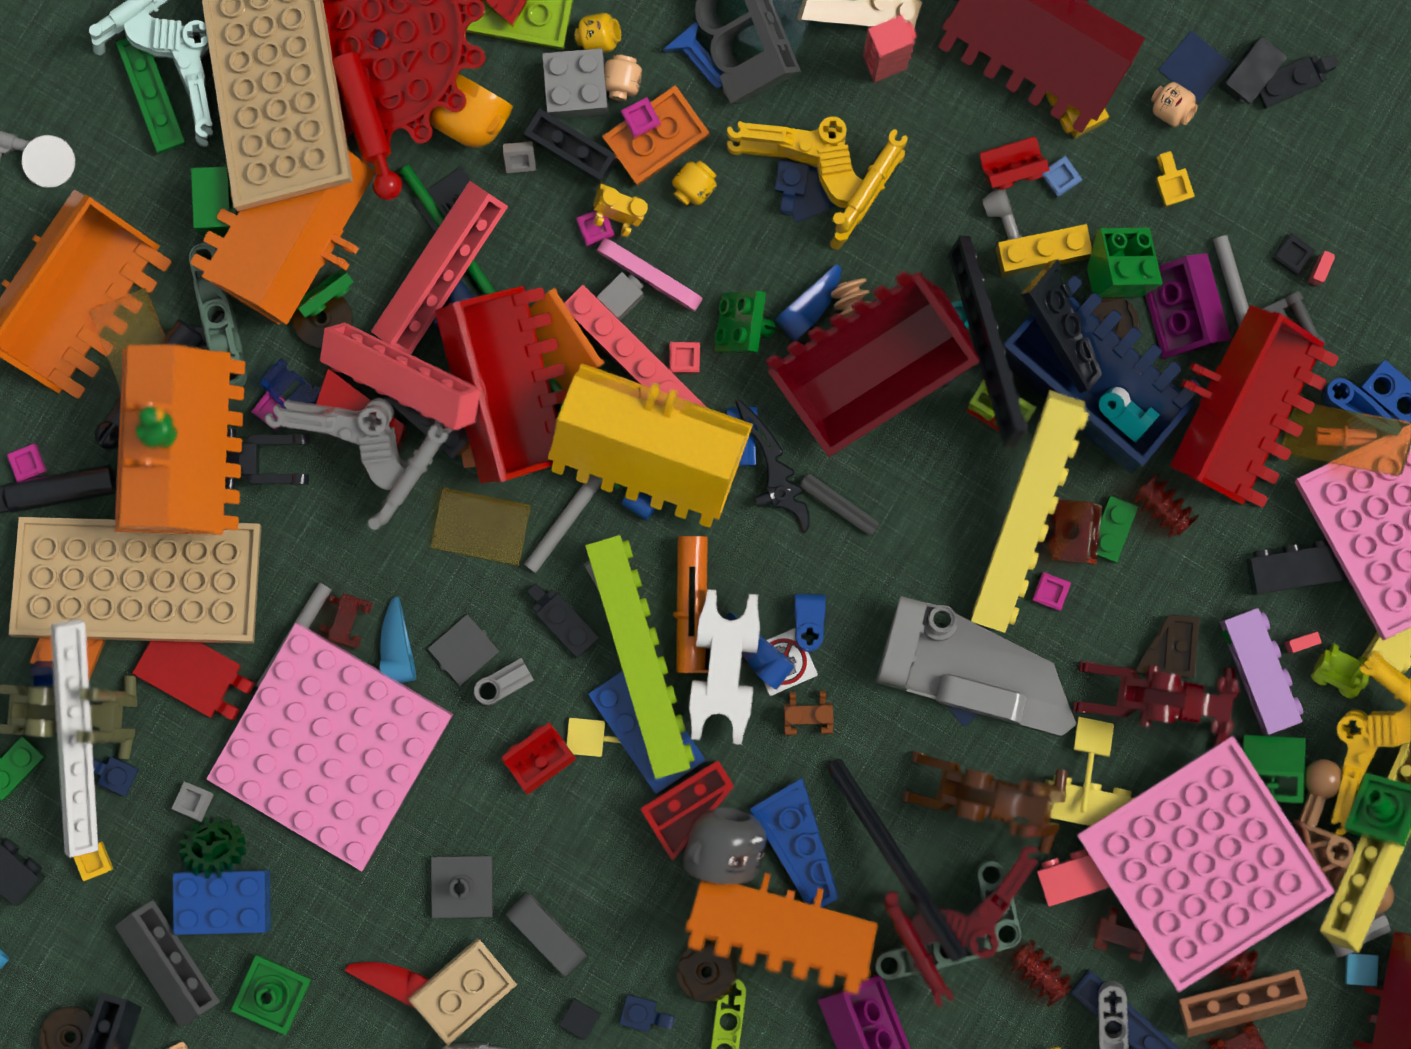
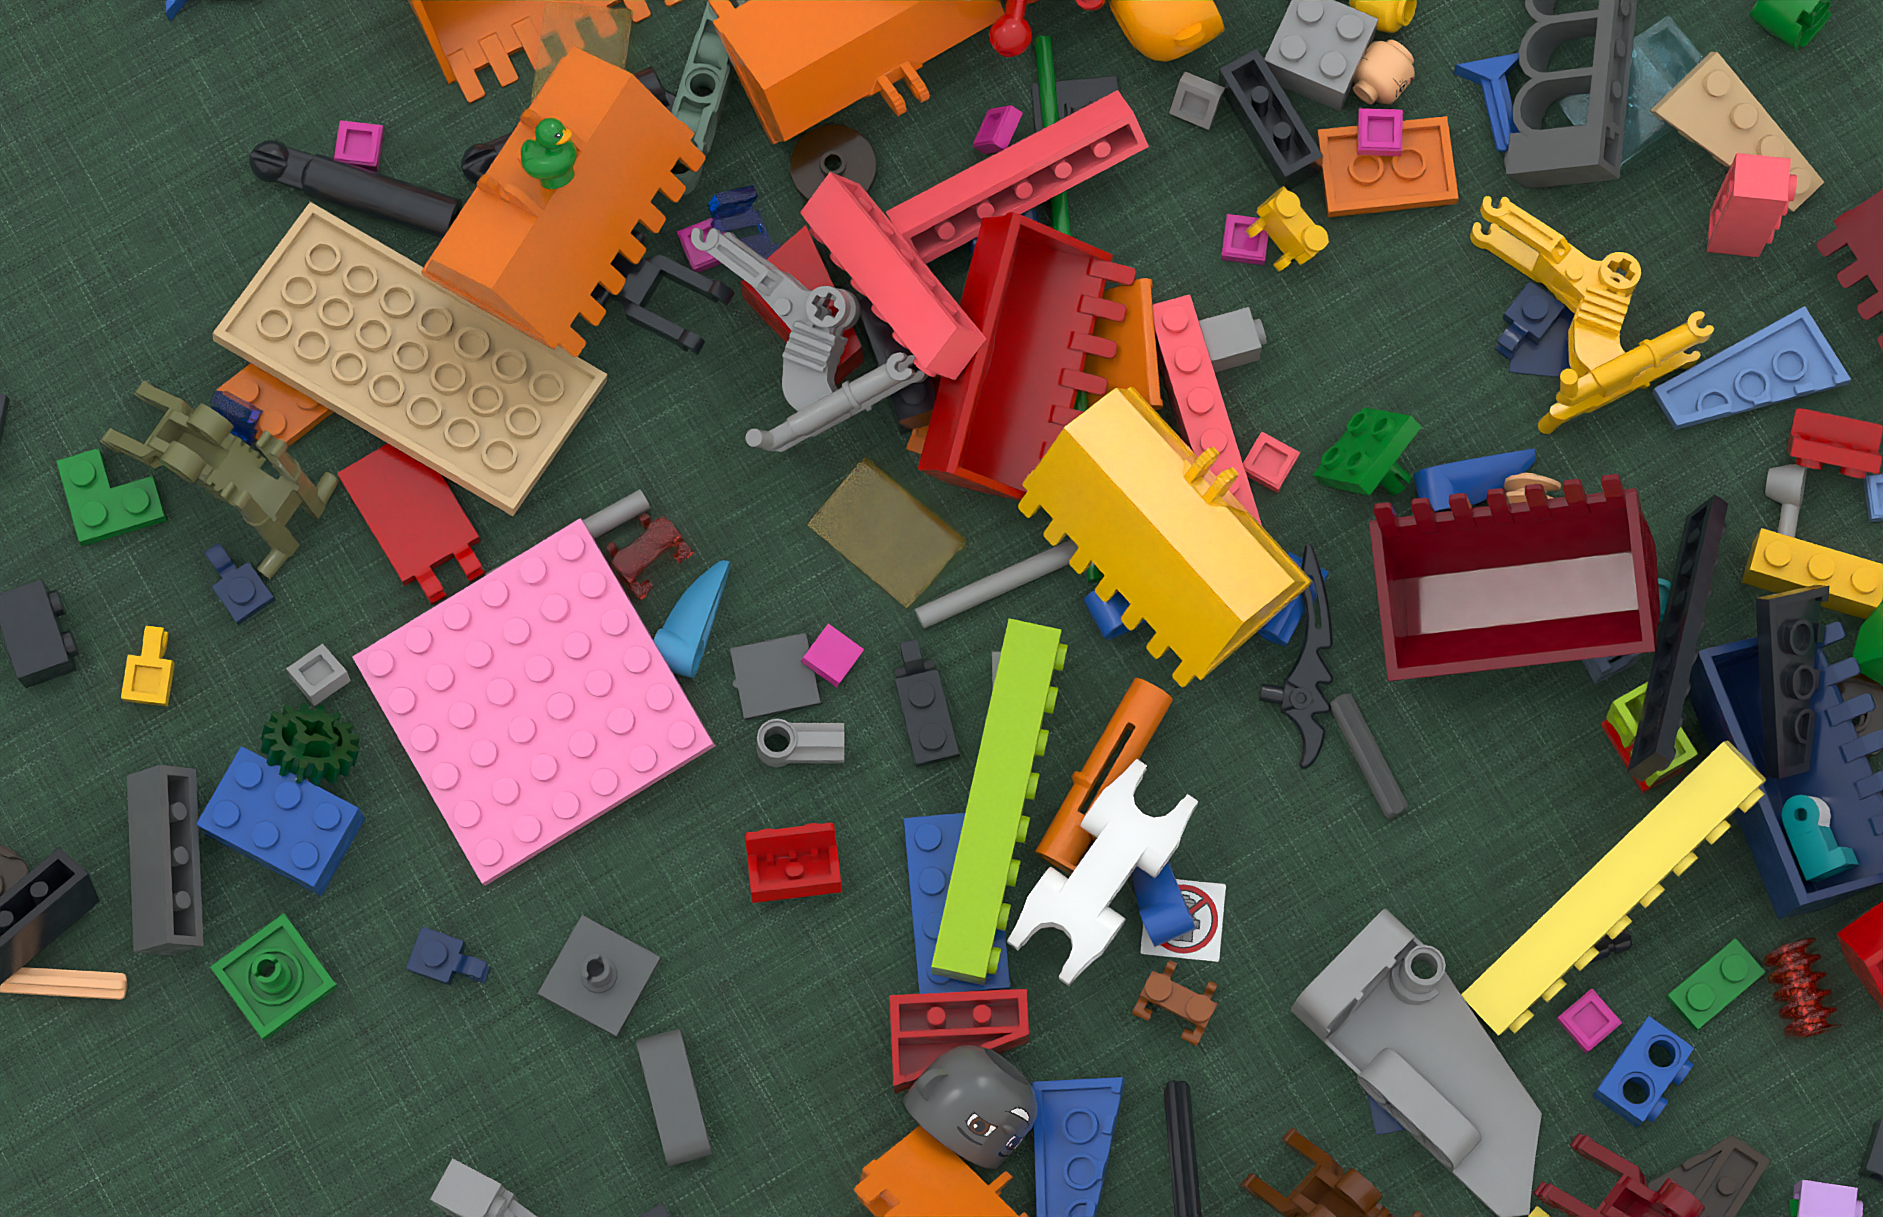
camera: 25 degrees right, 10 degrees down
(74, 758) = (208, 515): white plate -> none
(333, 286) = (872, 131): green plate -> none
(362, 927) = (441, 957): none -> dark blue plate
(389, 978) = (443, 1049): red piece -> none
(409, 241) = (997, 129): none -> dark pink tile
(462, 991) = (522, 1109): tan tile -> none
(491, 619) = (832, 655): none -> dark pink tile
(587, 737) = (872, 874): light yellow piece -> none
(649, 274) = (1282, 333): bright pink beam -> none
(694, 183) = (1403, 250): yellow head -> none
(809, 615) = (1250, 878): blue piece -> none
(945, 141) = (1761, 370): none -> medium blue wing
(1085, 546) = (1664, 982): clear red brick -> none
(1092, 604) = (1636, 1067): none -> blue brick

